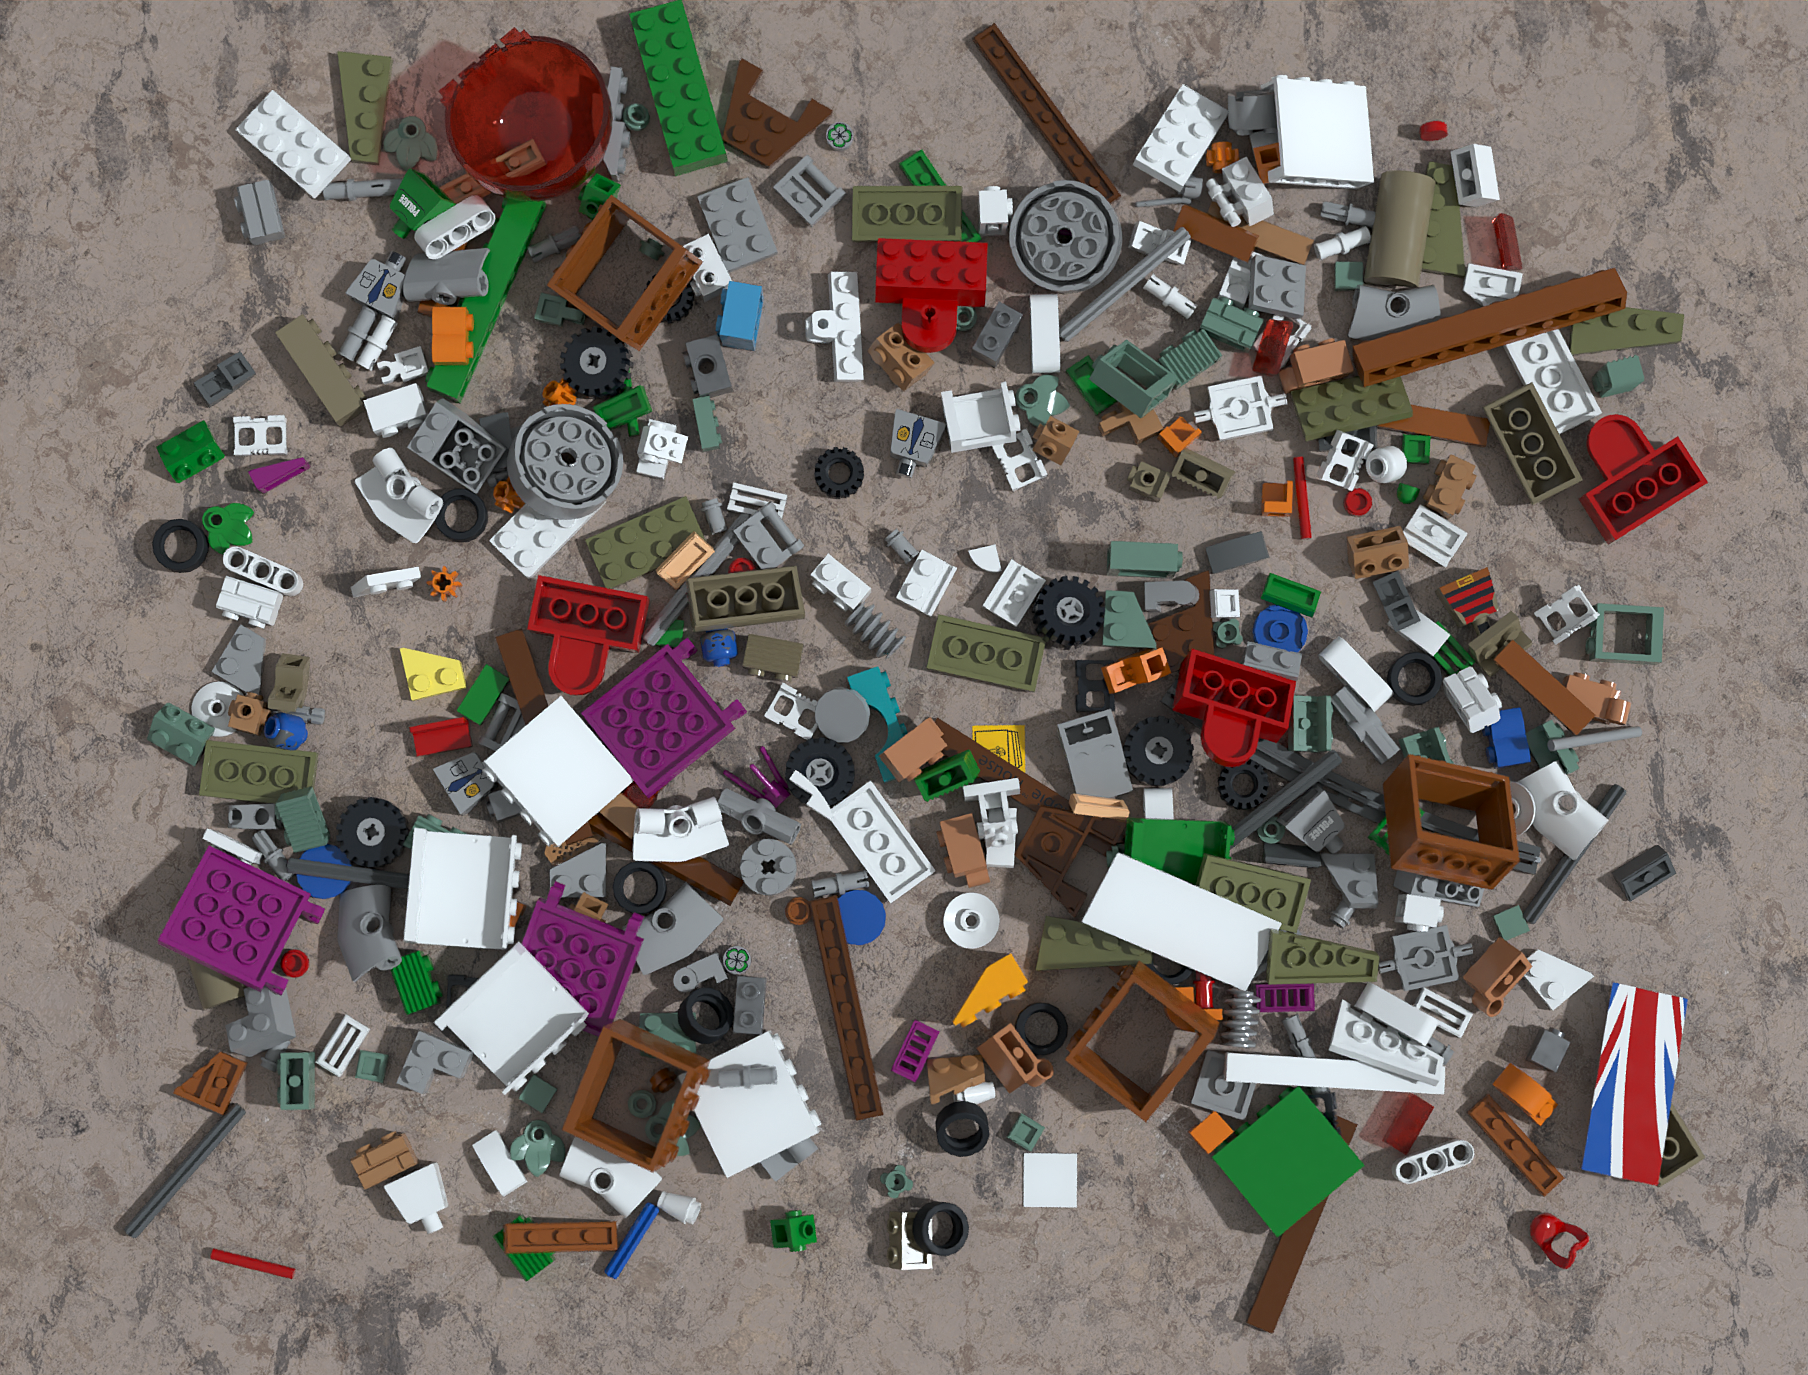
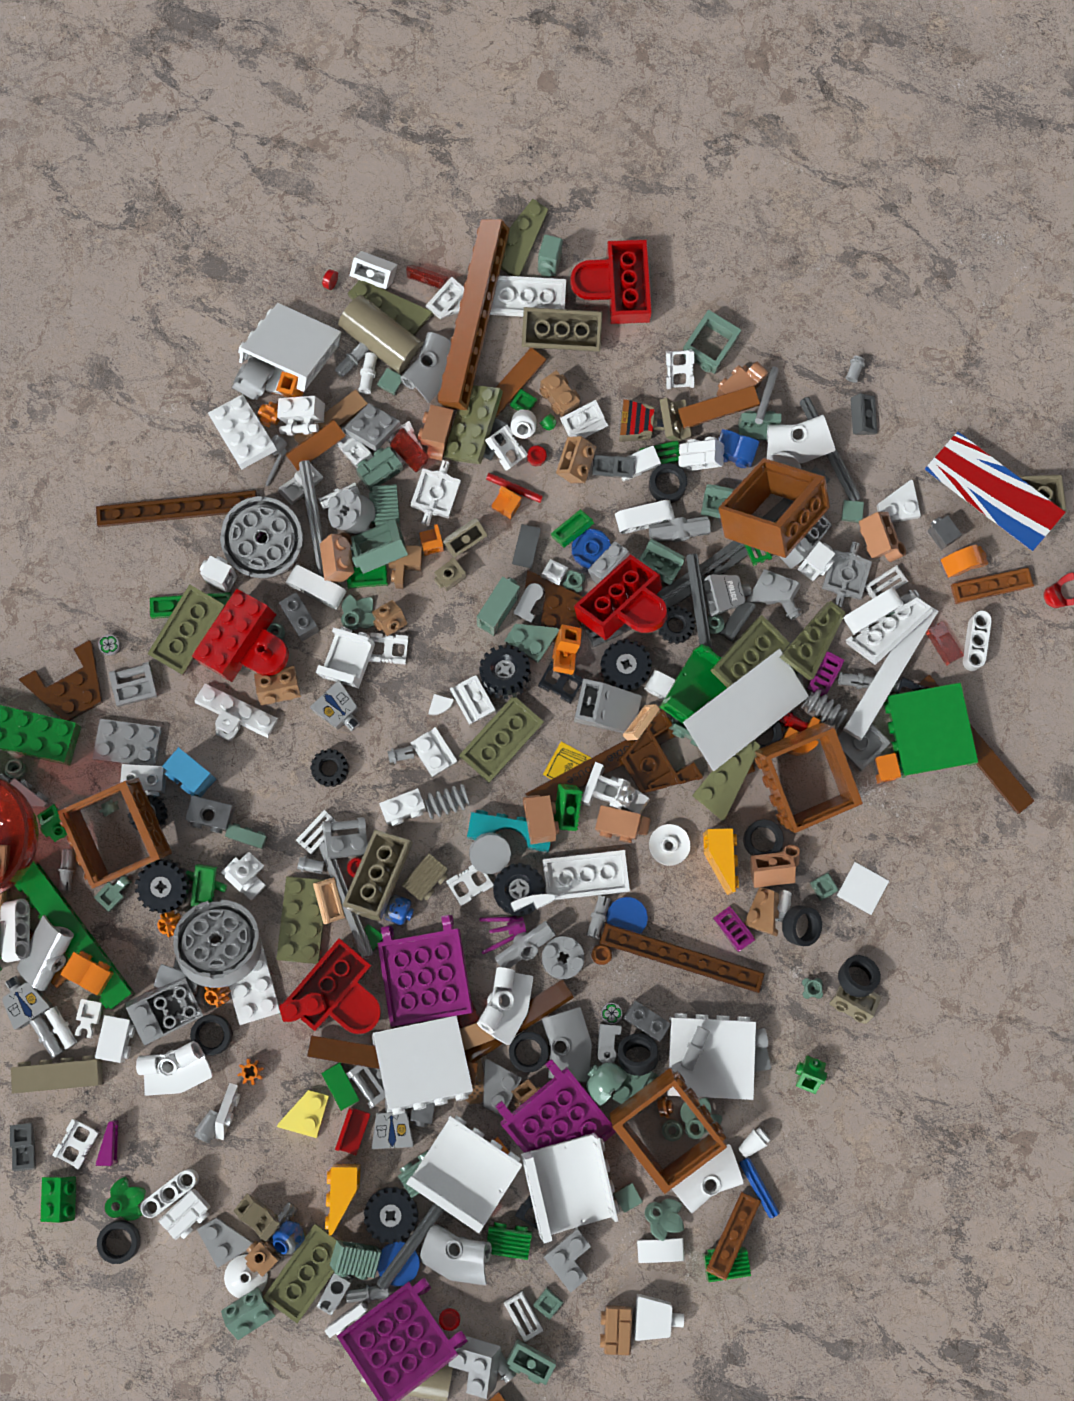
camera: 65 degrees left, 5 degrees down
(354, 570) = (206, 1129): none -> light grey cone
(374, 761) = (344, 1184): none -> light orange slope
(549, 604) = (307, 1006): none -> red brick
(653, 992) = (604, 1081): none -> sand green cylinder
(1092, 337) = (337, 557): none -> nougat hinge
(1156, 322) = (350, 512): none -> light grey brick
(1696, 830) = (855, 369): none -> light grey pin

